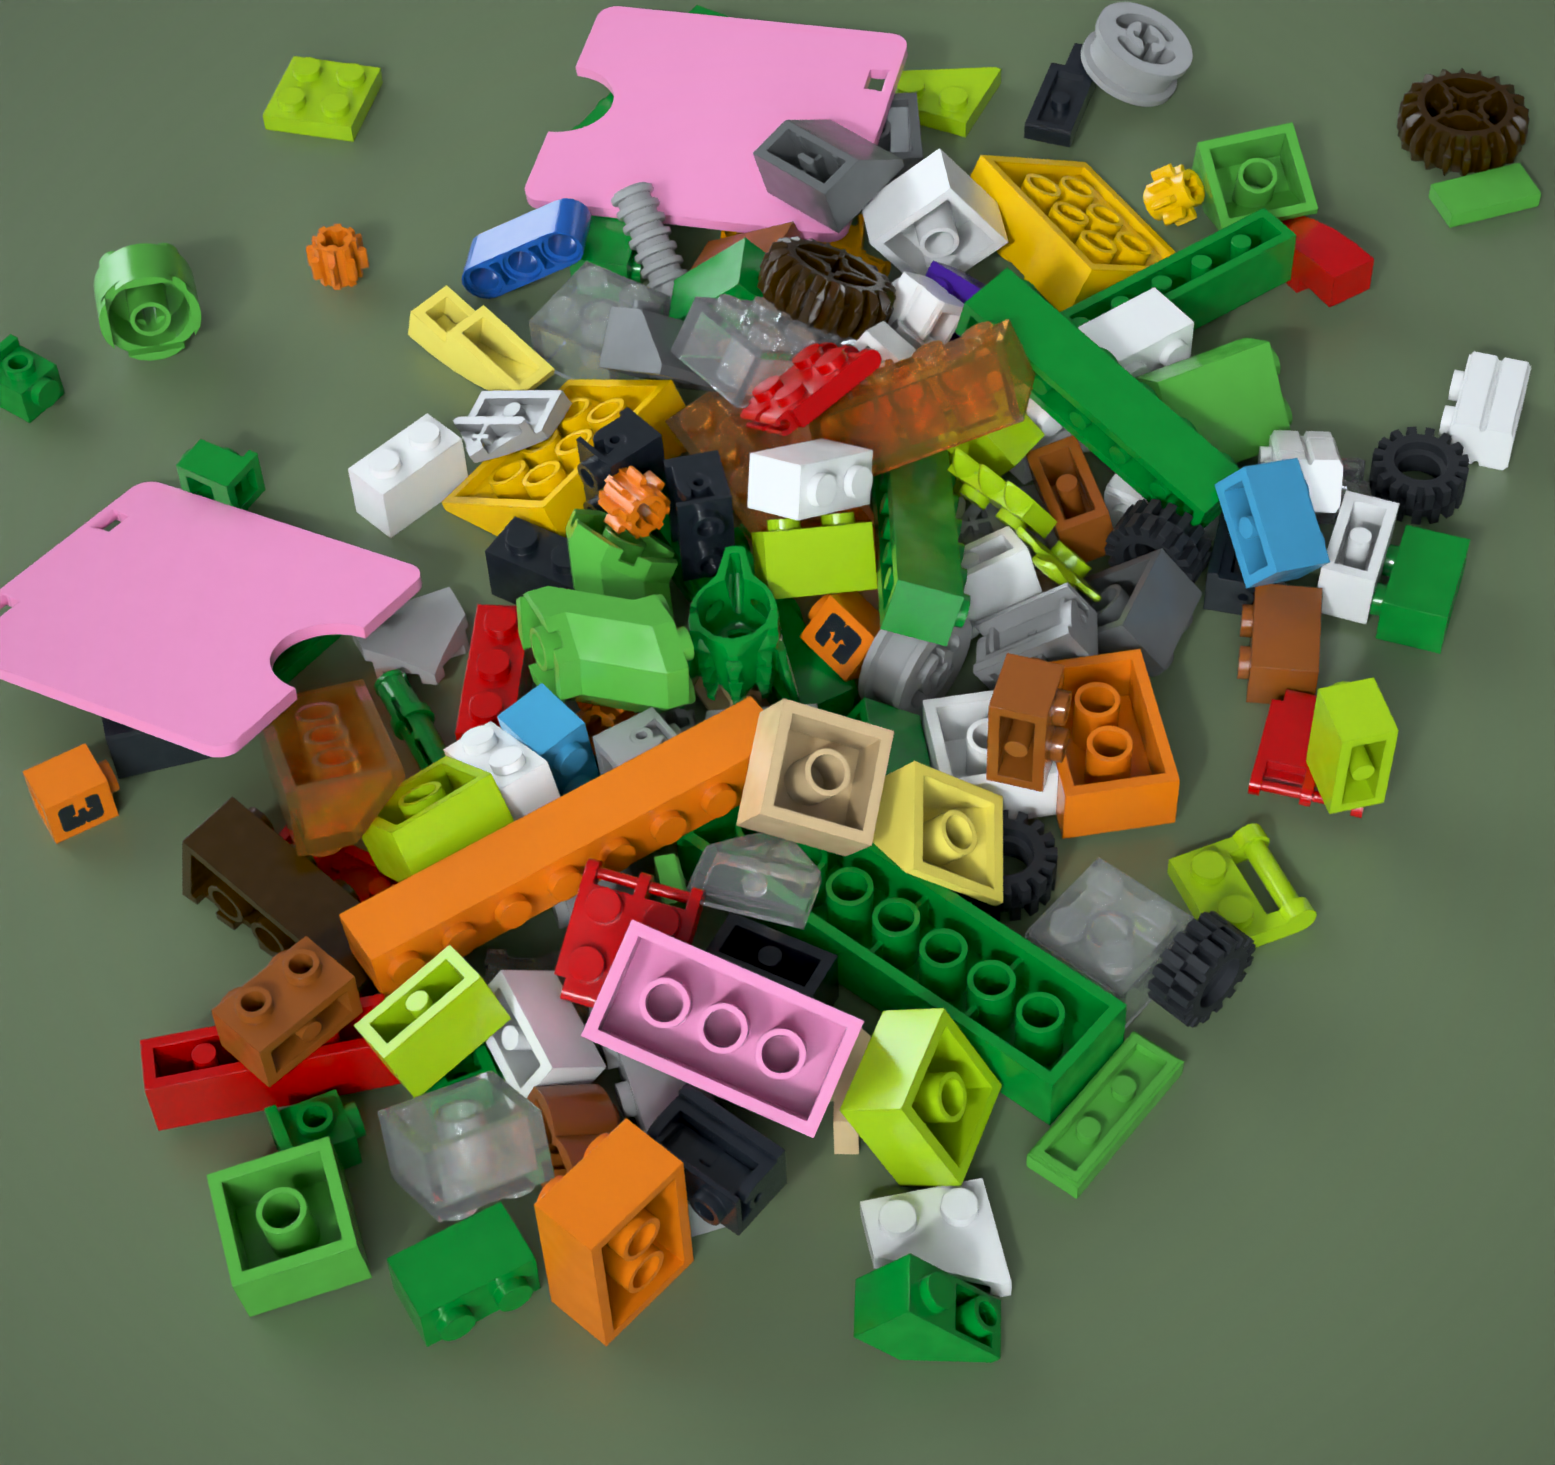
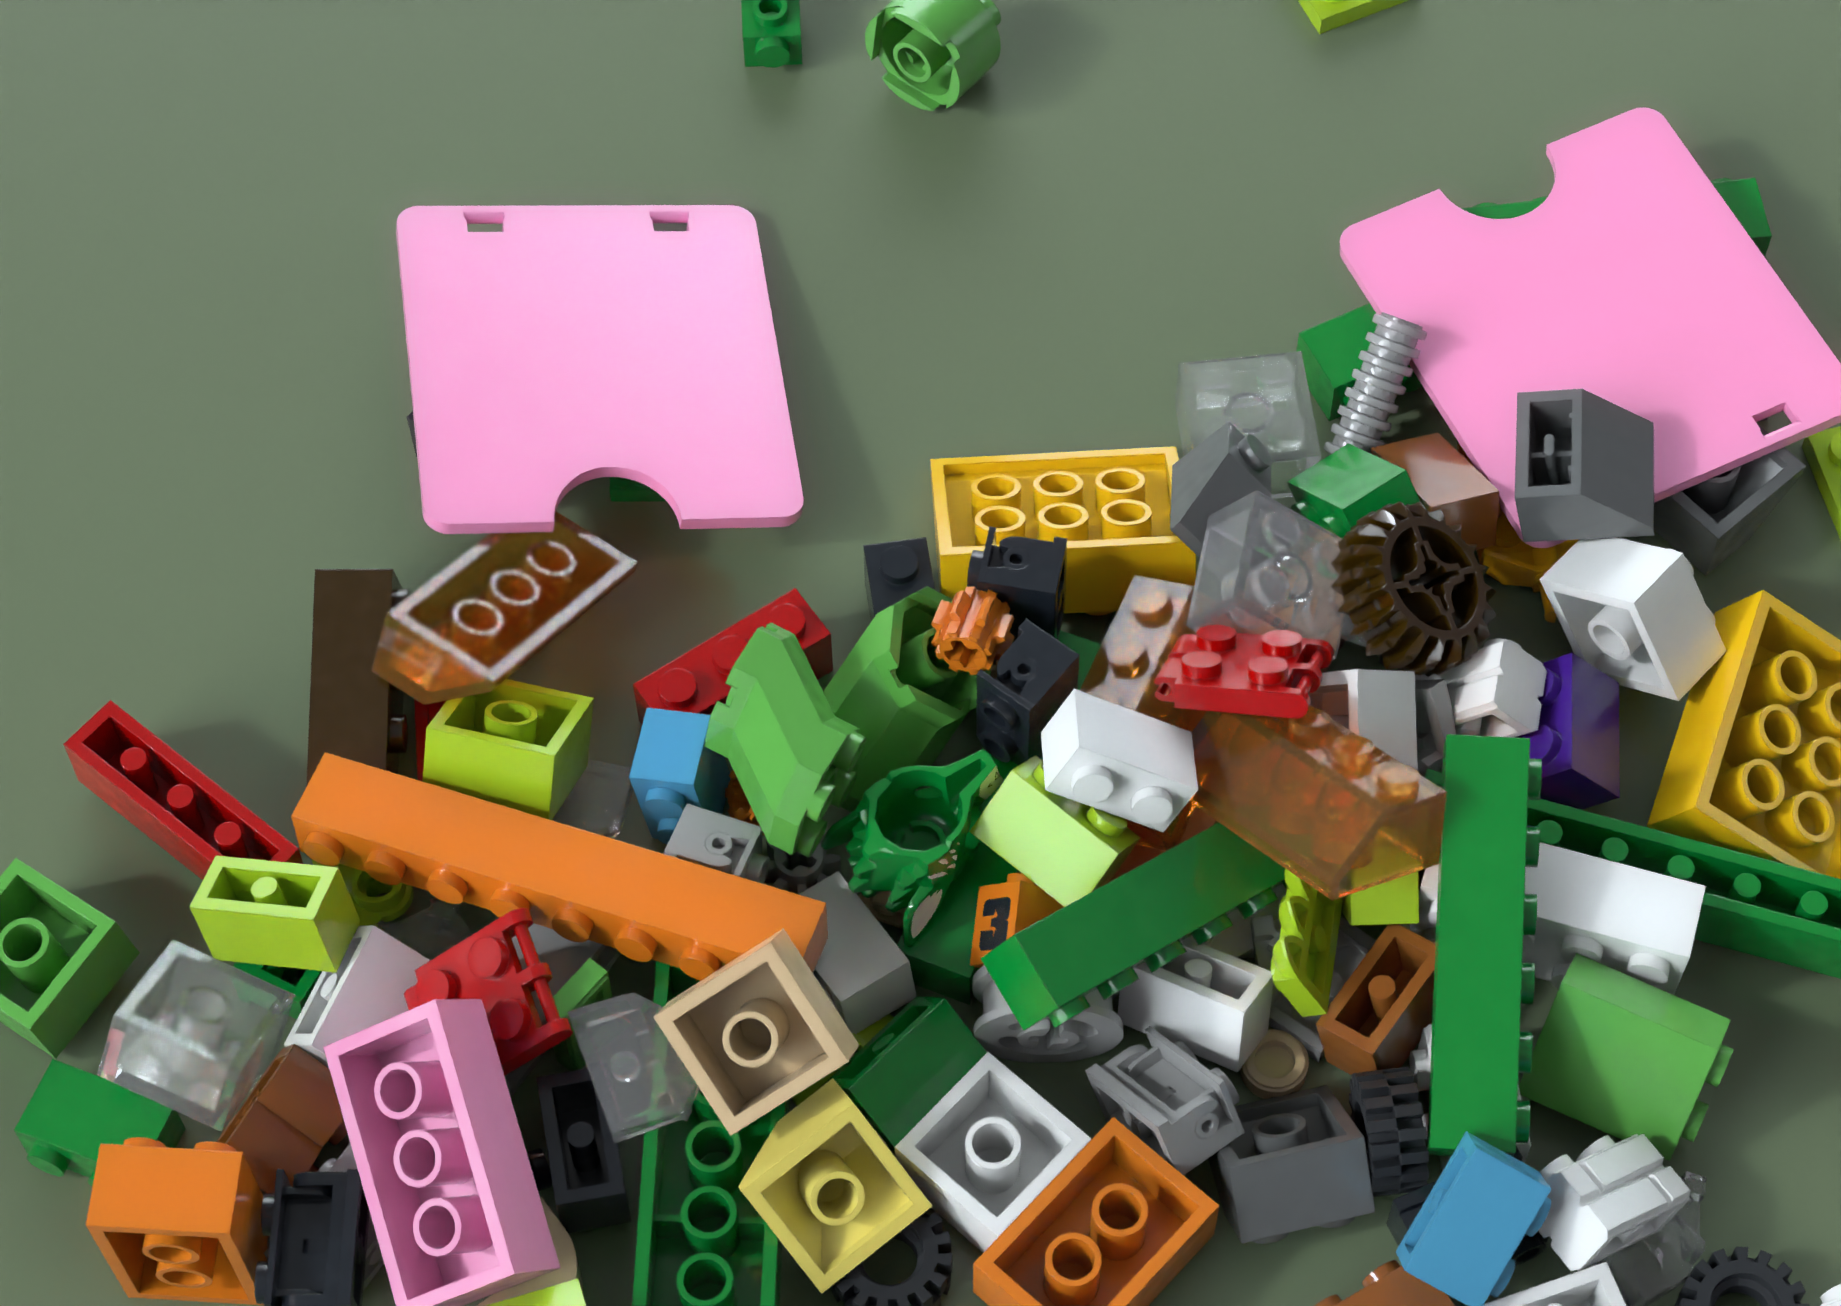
camera: 50 degrees right, 10 degrees up
(72, 792) = (354, 436): orange brick -> none
(221, 474) = (793, 266): green brick -> none
(287, 1010) = (202, 790): dark orange brick -> none
(318, 1119) = (128, 900): green brick -> none
(337, 256) = (1142, 141): orange gear -> none
(408, 475) = (922, 409): white brick -> none
(410, 718) = (646, 641): green pin -> none
(419, 637) = (751, 566): light grey slope -> none
(476, 344) = (1137, 343): light yellow slope -> none
(510, 421) = (1056, 442): light grey slope -> none
(517, 770) = (594, 773): white brick -> none
(527, 248) = (1280, 288): blue beam -> none
(1027, 722) = (992, 1167): dark orange brick -> none
(1060, 563) = (1278, 1055): lime plate -> none

